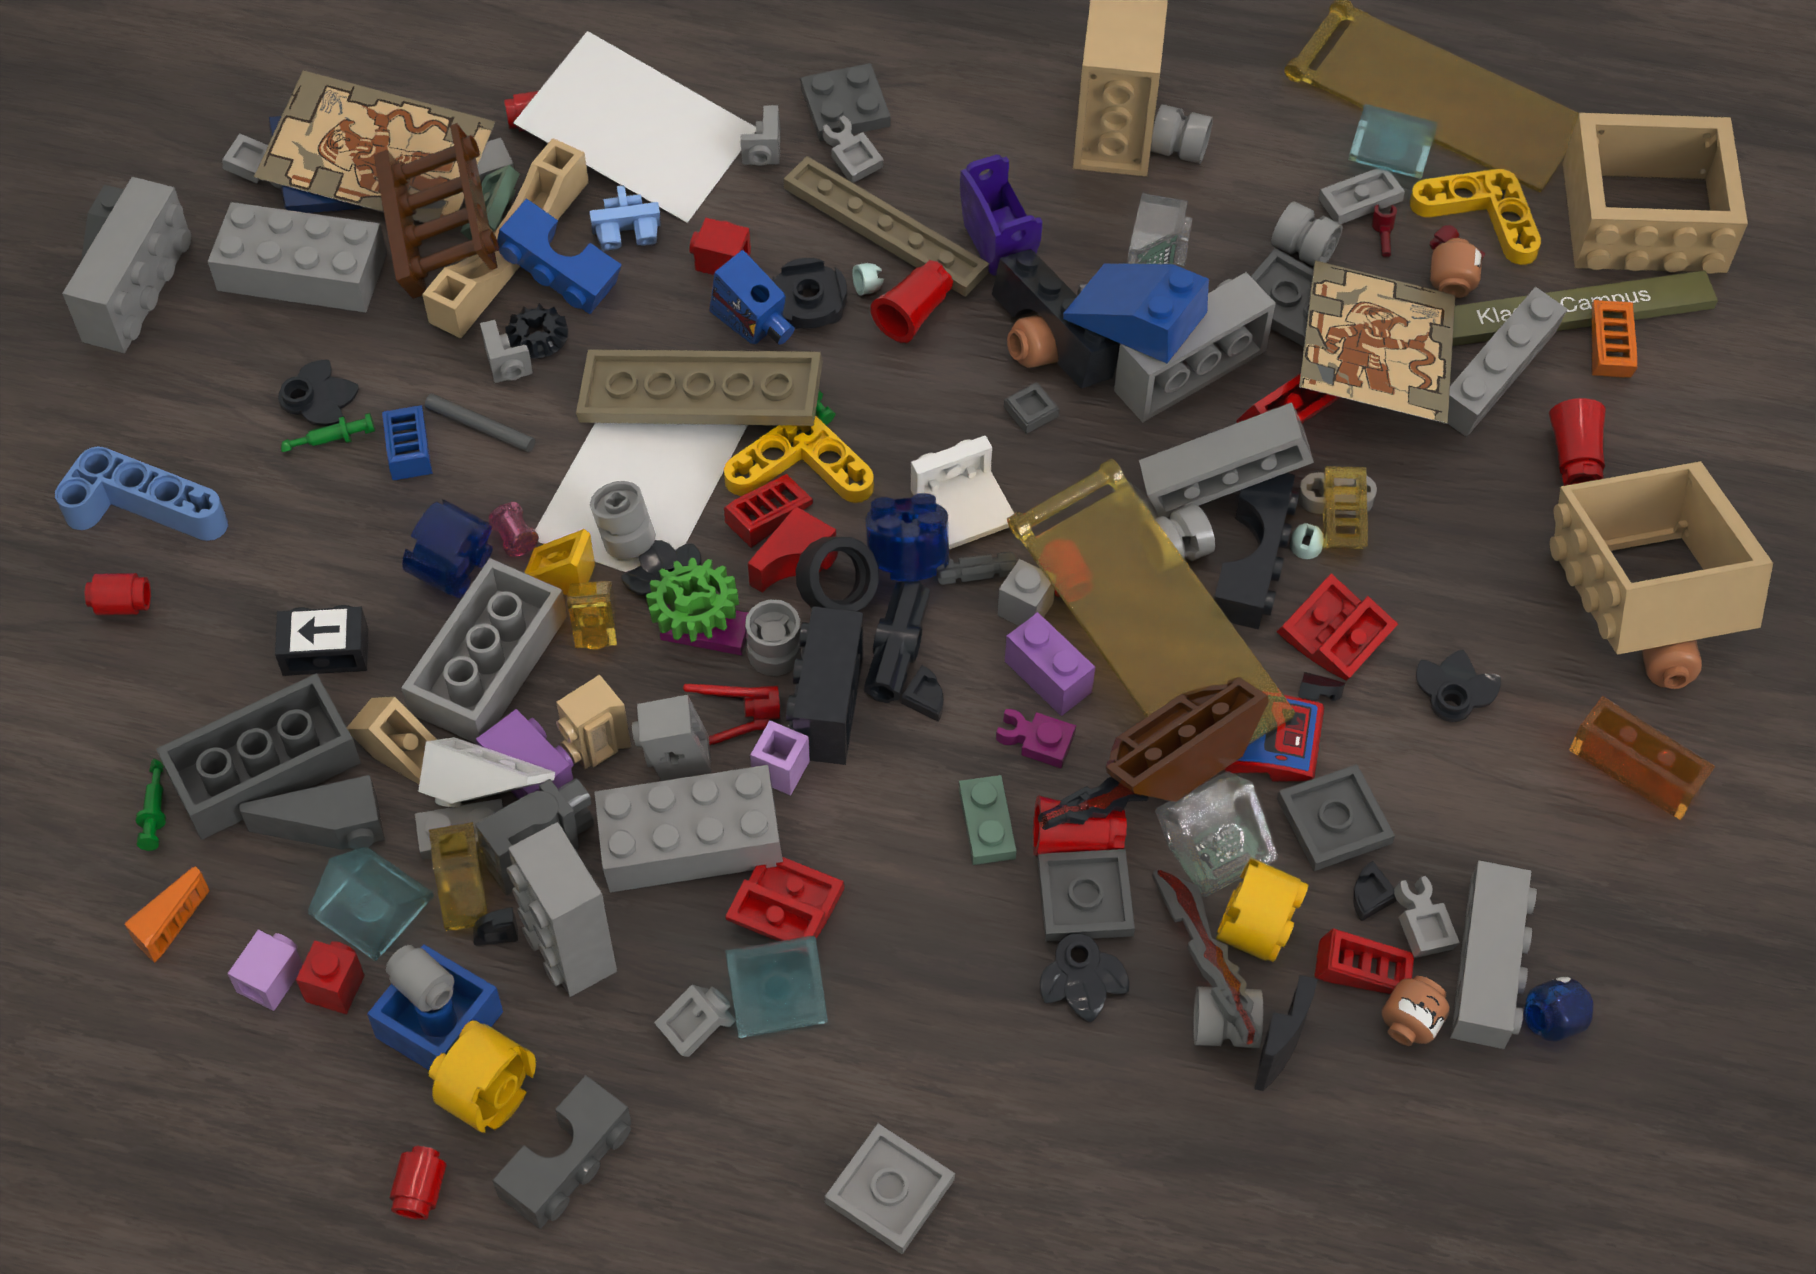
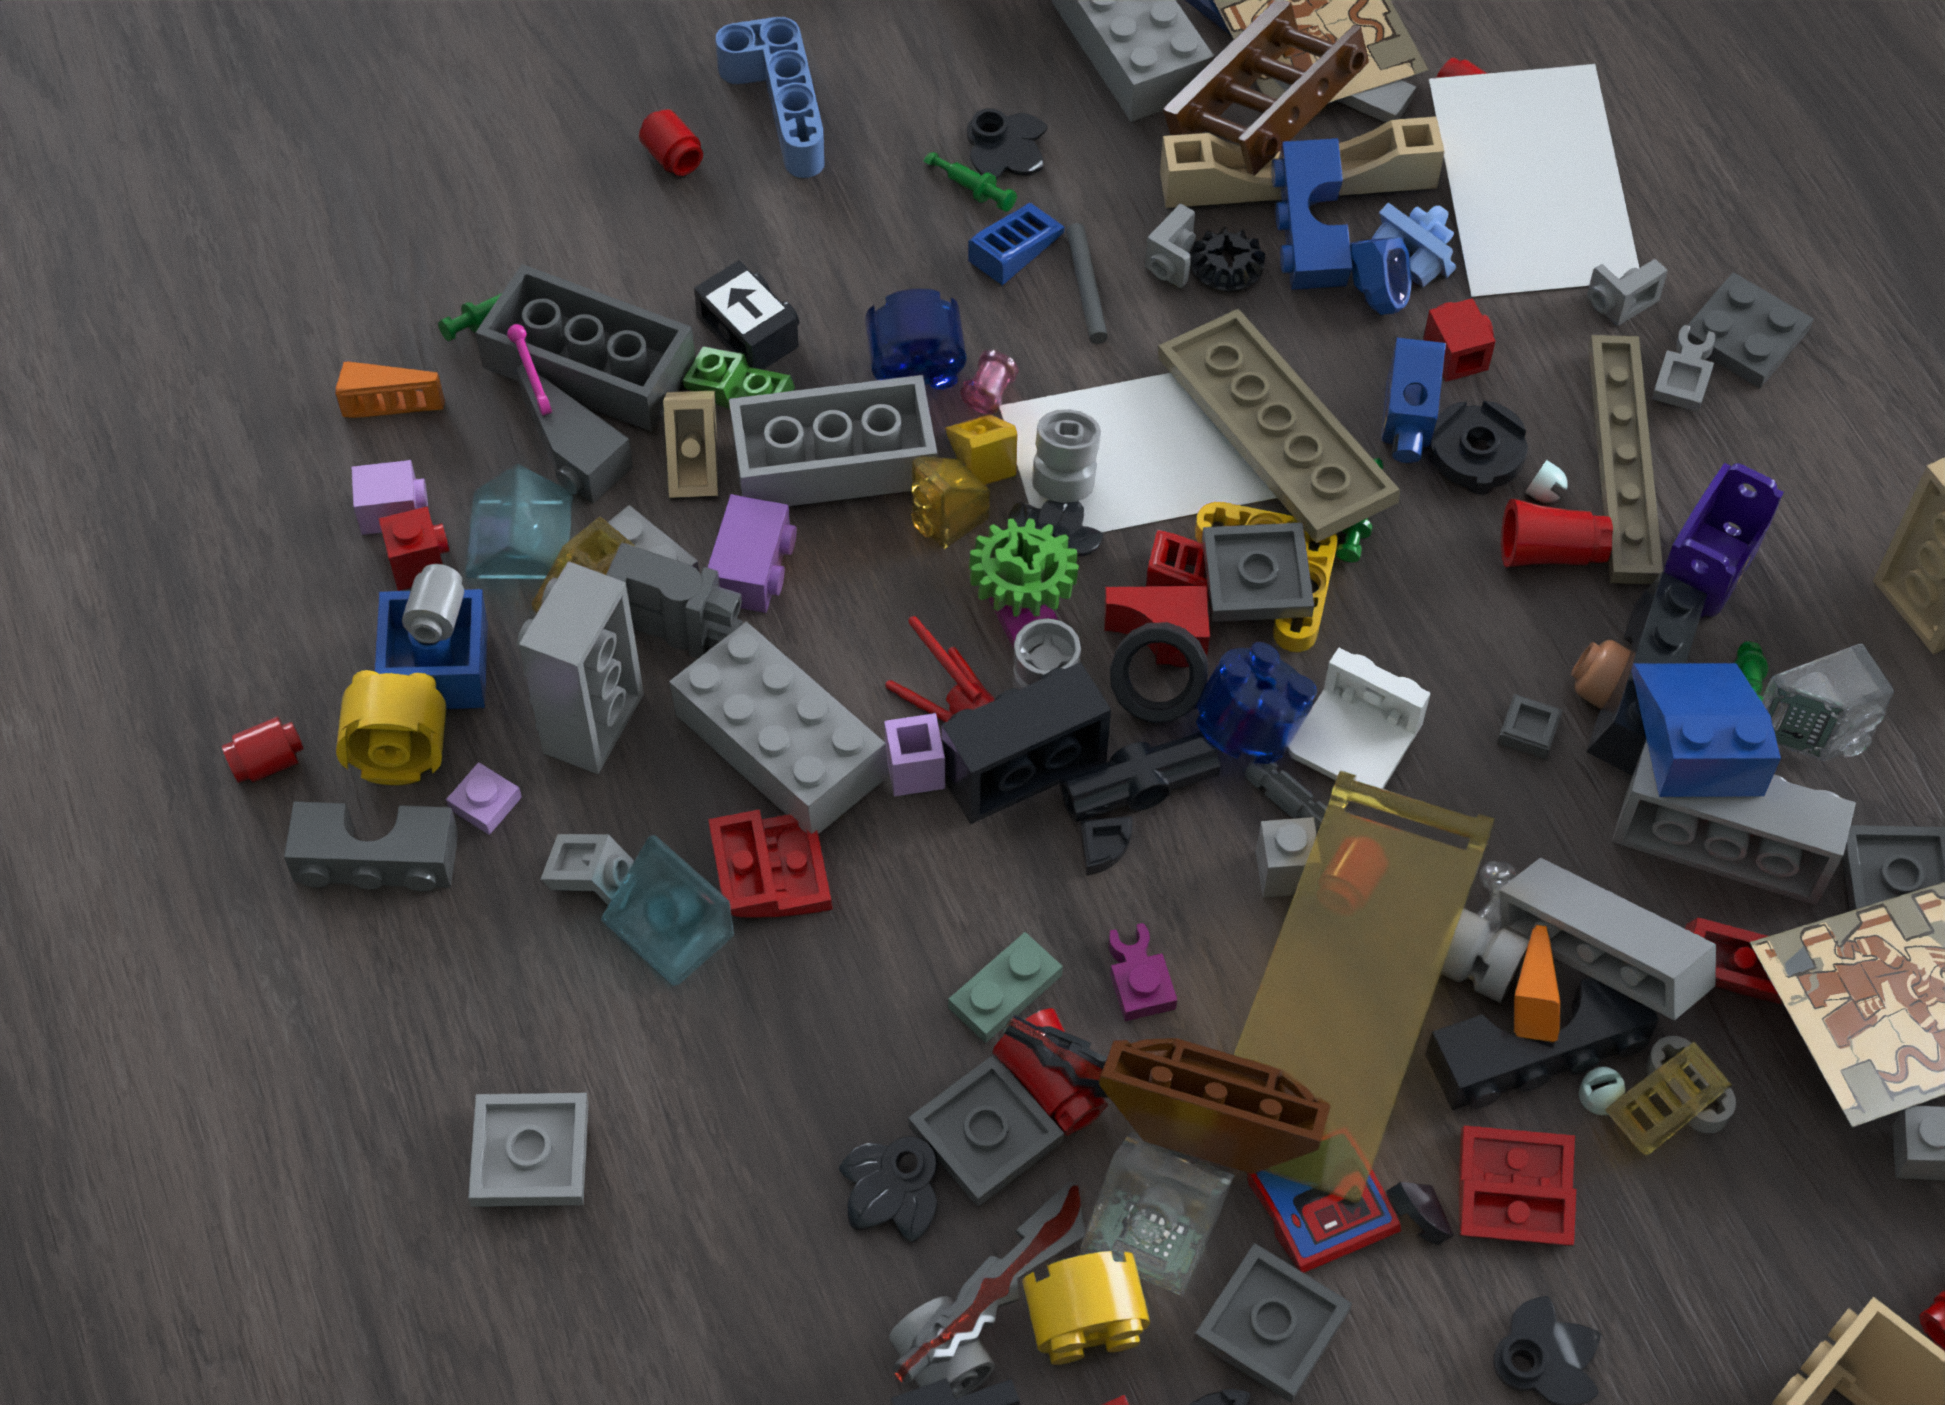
camera: 55 degrees right, 0 degrees up
(222, 787) = (517, 335): none -> dark pink hinge
(357, 685) = (732, 377): none -> bright green slope
(465, 771) = (692, 511): white slope -> none
(497, 193) = (1342, 124): sand green plate -> none
(579, 1056) = (484, 798): none -> lavender plate
(592, 723) = (819, 574): tan window -> none
(634, 252) = (1382, 273): none -> blue rock
(672, 738) = (857, 649): light grey brick -> none
(807, 471) = (1257, 572): none -> dark grey plate
(1049, 664) = (1224, 928): medium lavender brick -> none
(1086, 265) = (1752, 664): none -> green piece
(1234, 520) = (1537, 991): none -> orange slope

